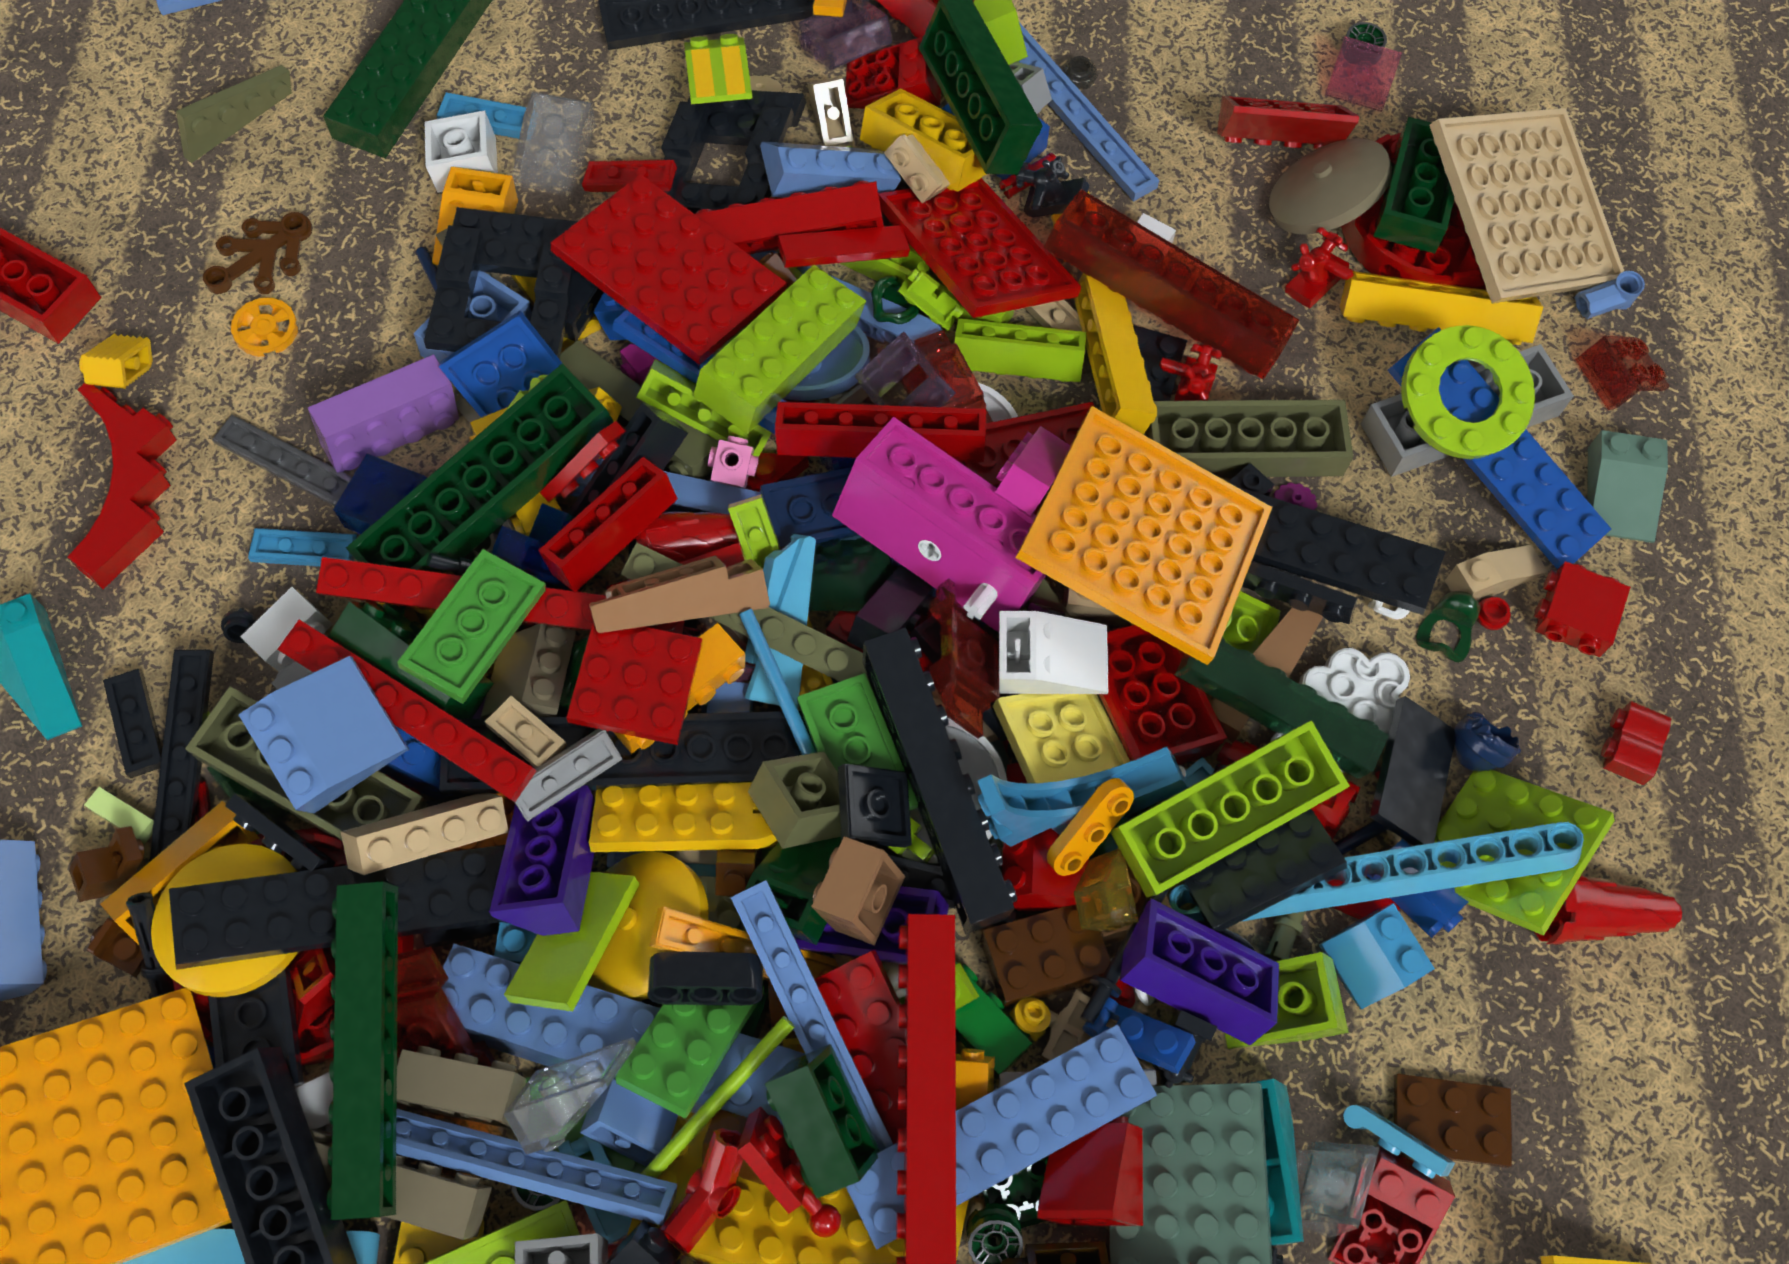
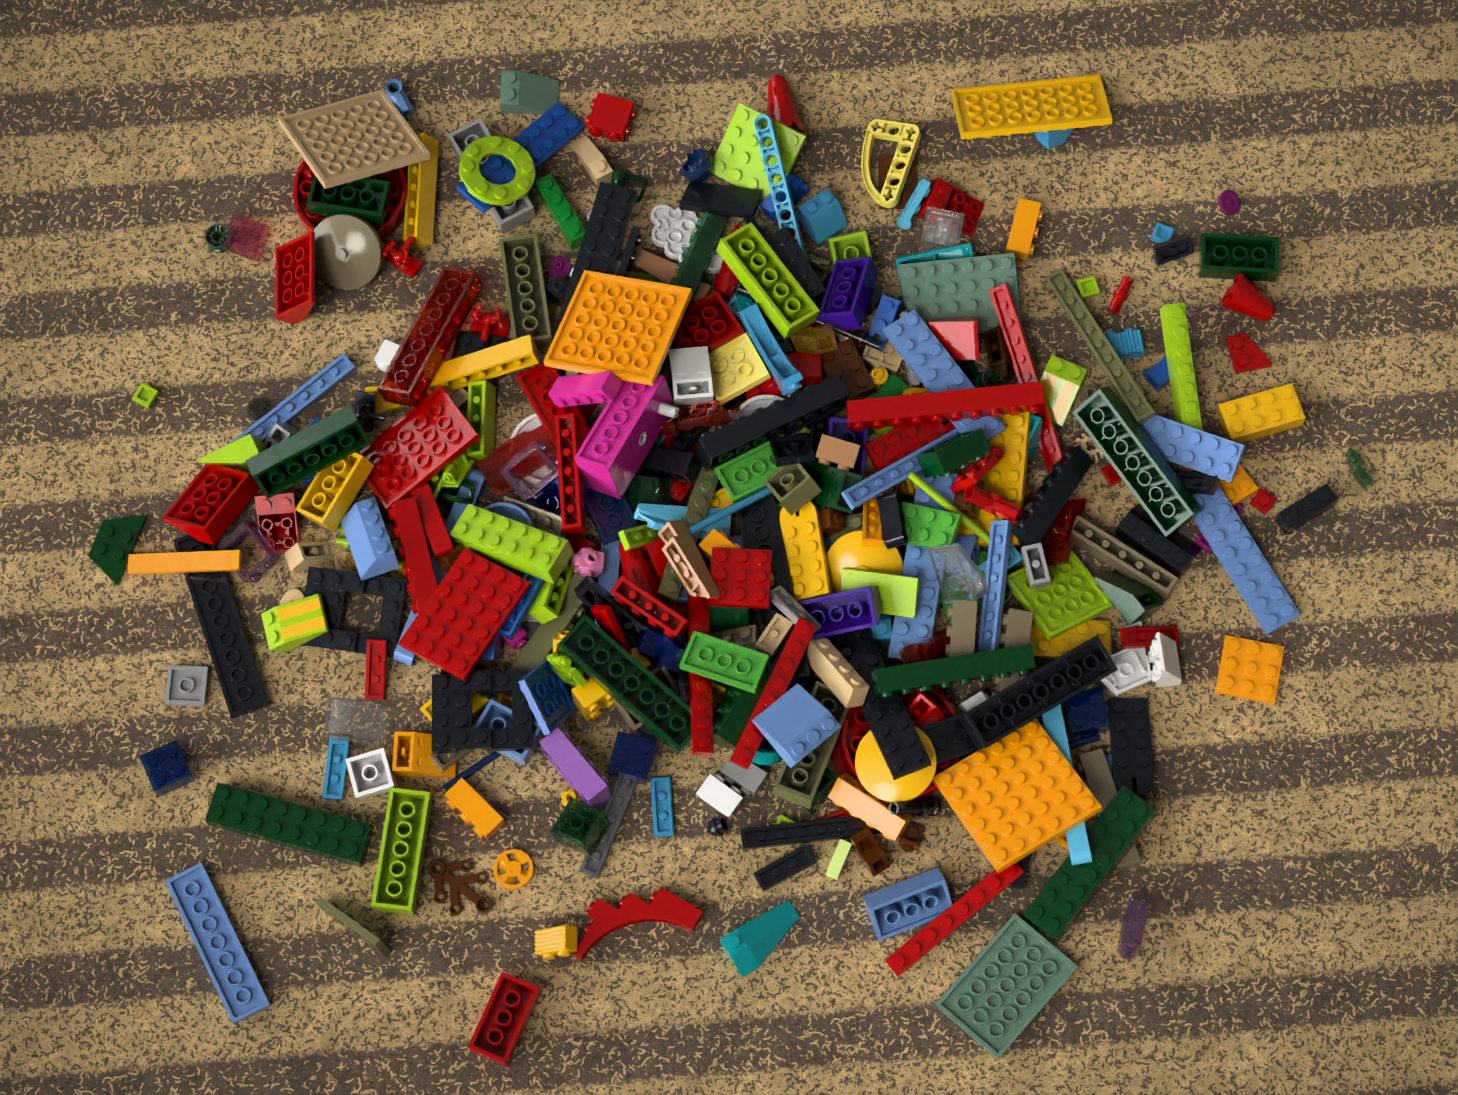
camera: 90 degrees left, 5 degrees up
(277, 834) = (849, 747): black plate -> none
(281, 415) = (580, 826): none -> clear green brick
(329, 177) = (401, 851): none -> lime brick
(372, 280) = (473, 809): none -> light orange brick
(916, 167) = (366, 486): tan bracket -> none
(1090, 826) = (787, 345): light orange plate -> none
(1409, 504) = (560, 210): none -> green brick
(1494, 613) = (616, 161): red plate -> none
(1543, 1142) = (899, 157): none -> light yellow beam
(1620, 369) = (449, 93): clear red bracket -> none
(1636, 742) = (685, 93): red brick -> none

